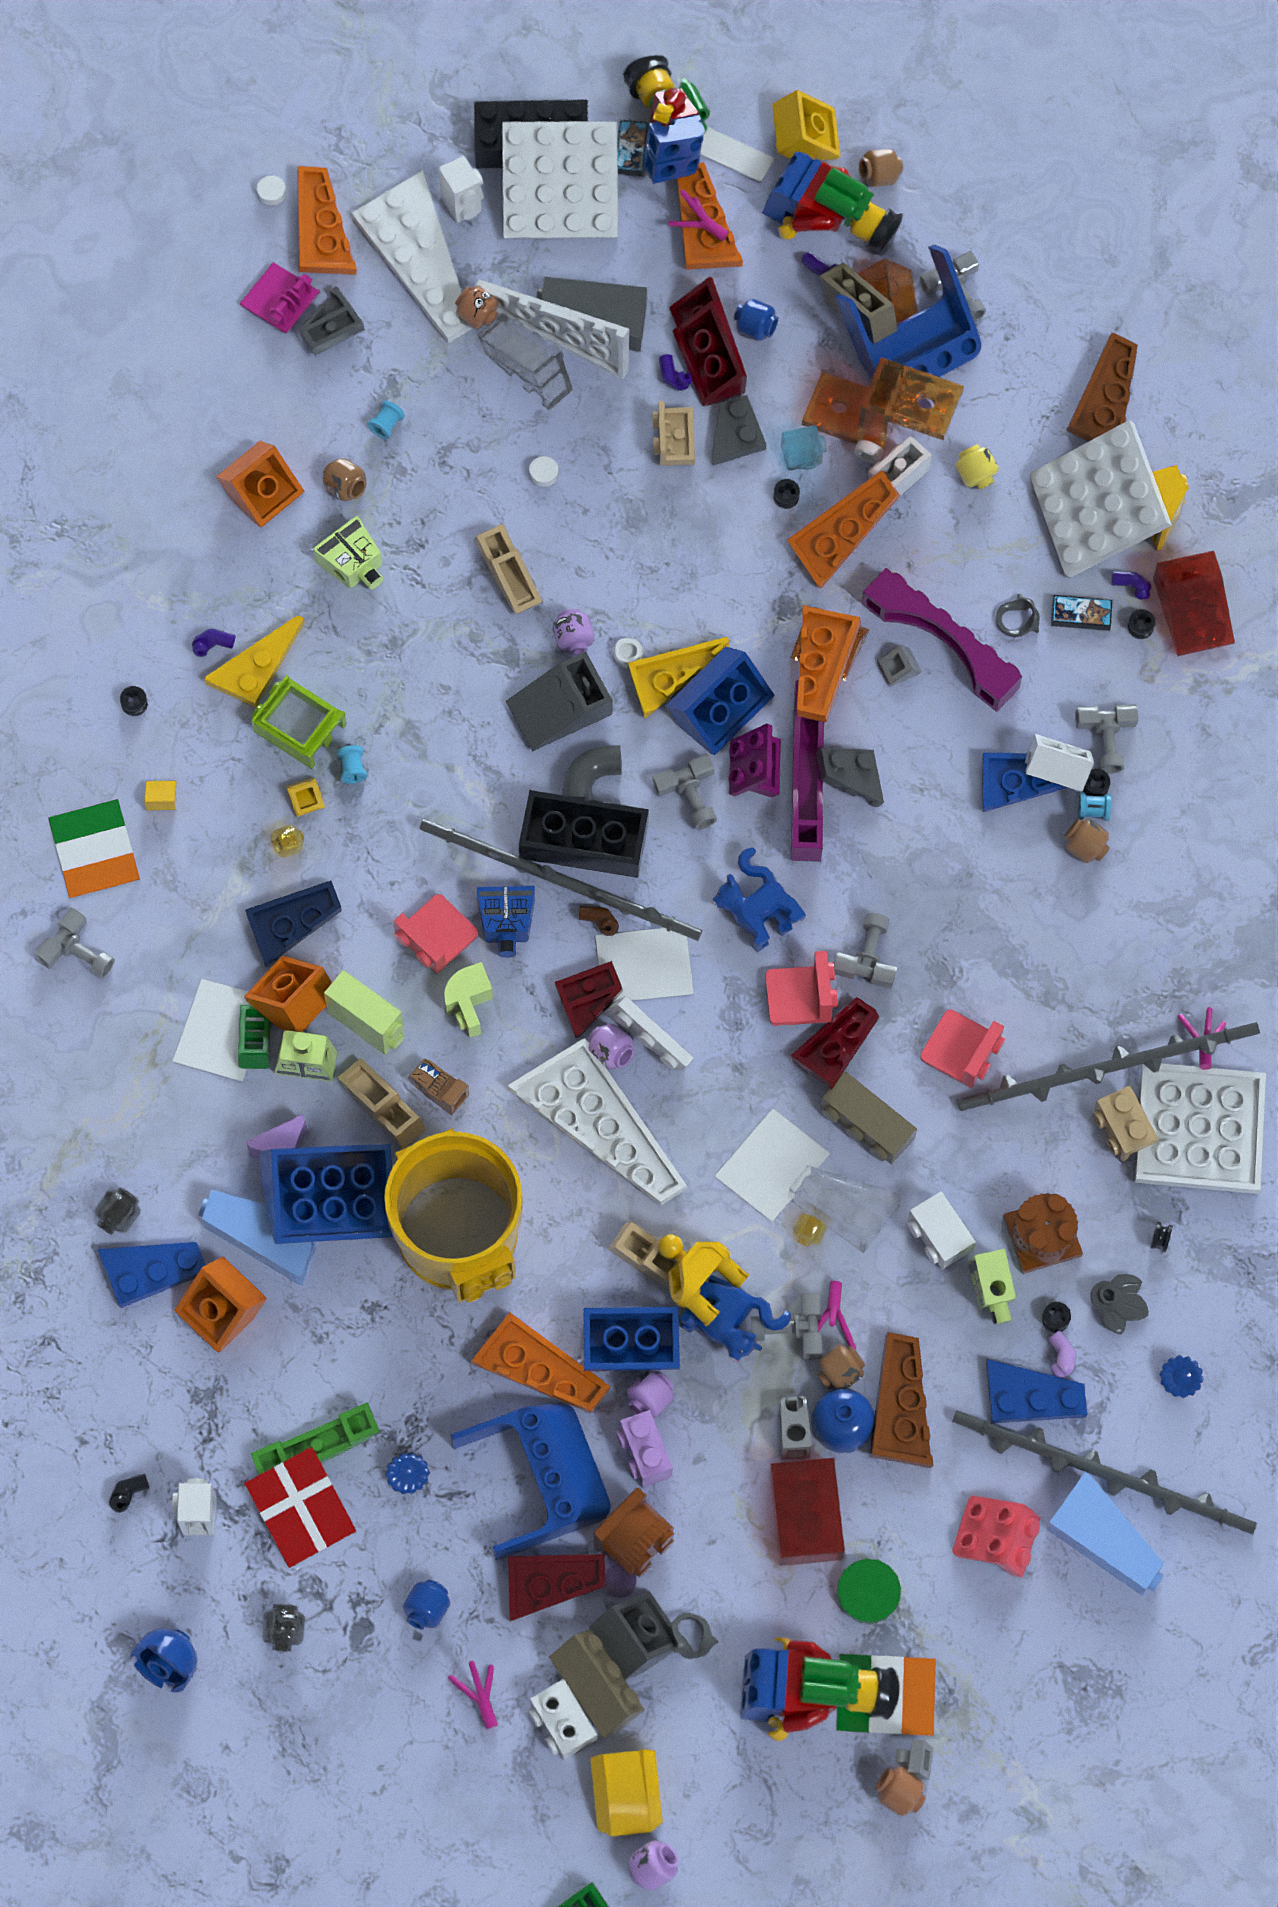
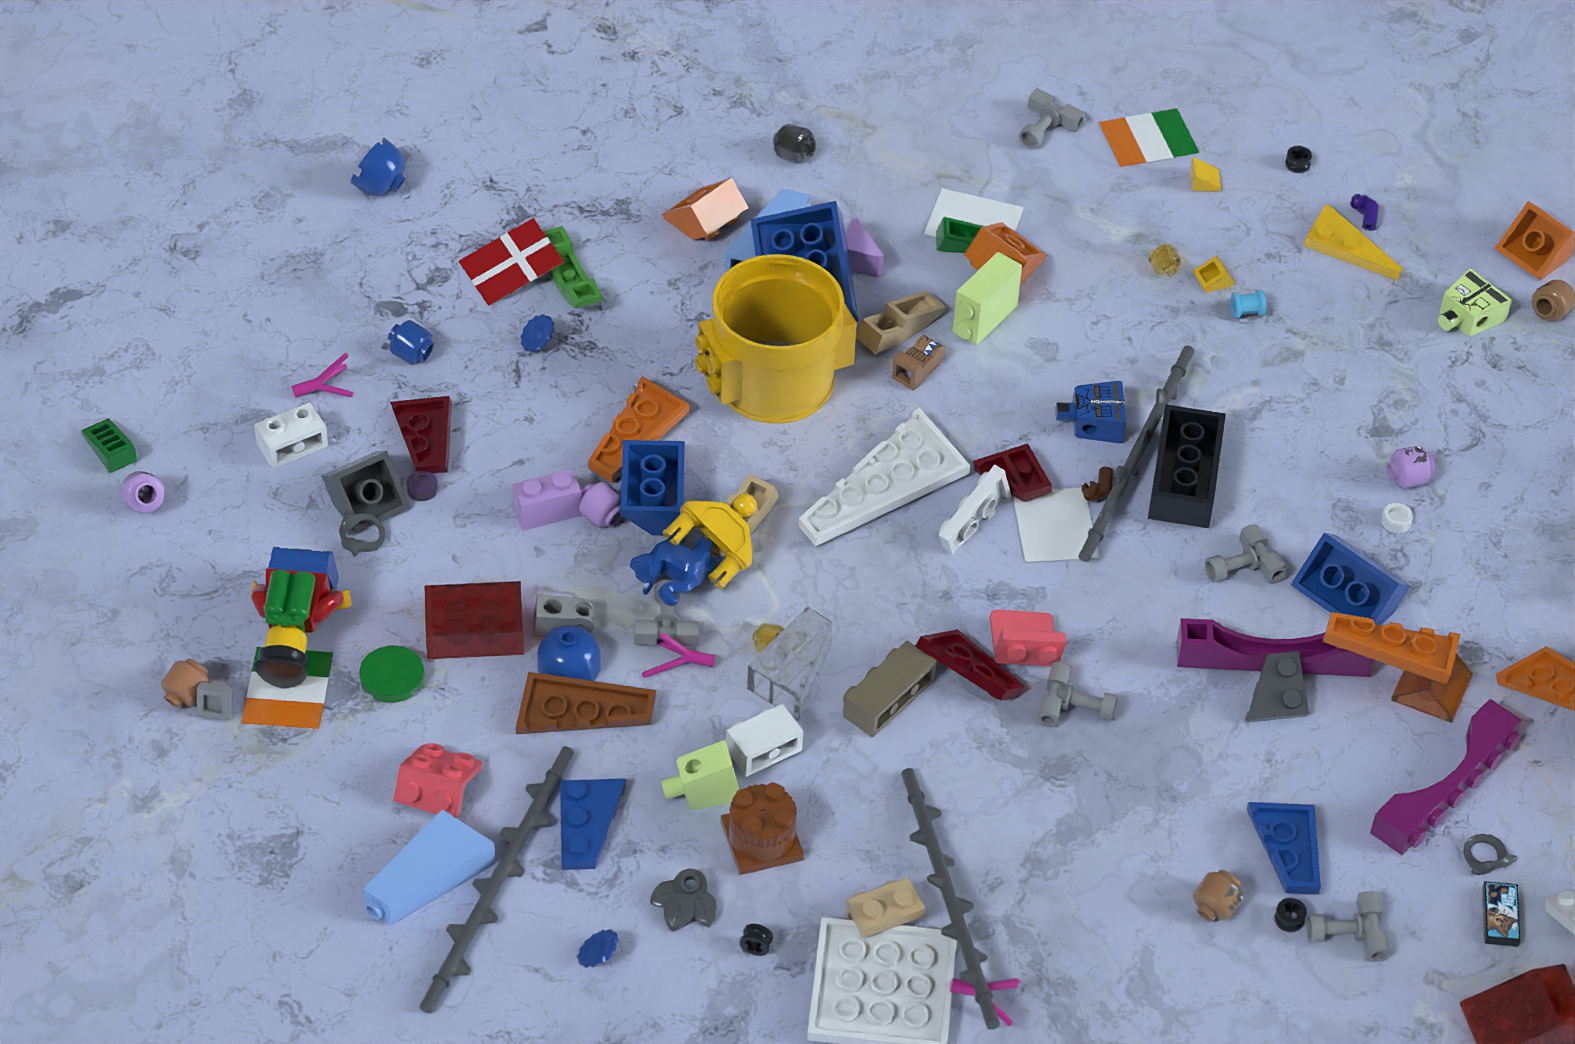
camera: 90 degrees right, 20 degrees down
(124, 1492) = (534, 152): black arm -> none
(150, 1269) = (743, 163): blue wing -> none
(195, 1507) = (511, 184): white brick -> none
(283, 1627) = (399, 246): clear smoke head -> none
(291, 918) = (1084, 260): dark blue wing -> none
(296, 720) = (1292, 262): lime window -> none
(305, 1055) = (946, 250): yellowish green torso -> none
(435, 933) = (1071, 358): coral bracket -> none
(463, 991) = (1010, 377): yellowish green brick -> none
(508, 569) = (1477, 421): tan slope -> none
(560, 1466) = (531, 436): blue windscreen -> none
(561, 702) = (1334, 459): dark grey slope -> none
(590, 767) = (1258, 475): dark grey cylinder -> none
(596, 1683) = (320, 454): dark tan brick -> none
(611, 1046) = (958, 483): lavender head -> none
(626, 1792) = (217, 482): yellow slope -> none
(634, 1534) = (461, 479): dark orange piece -> none
(665, 674) = (1375, 538): yellow wing -> none
(755, 763) = (1281, 613): magenta bracket -> none
(765, 903) = (1119, 607): blue animal -> none
(770, 1164) = (856, 619): white sticker -> none
(841, 1367) = (621, 654): medium nougat head -> none
(899, 665) = (1414, 745): light grey slope -> none
(962, 1047) = (969, 774): coral bracket -> none
(1046, 1316) = (671, 852): black bush -> none
(1059, 762) = (1306, 864): white hinge -> none
(1066, 1355) = (627, 849): lavender arm -> none
(1103, 801) = (1260, 907): medium azure bush -> none
(1133, 579) = (1550, 956): dark purple arm -> none
(1148, 618) = (1501, 964): black bush -> none

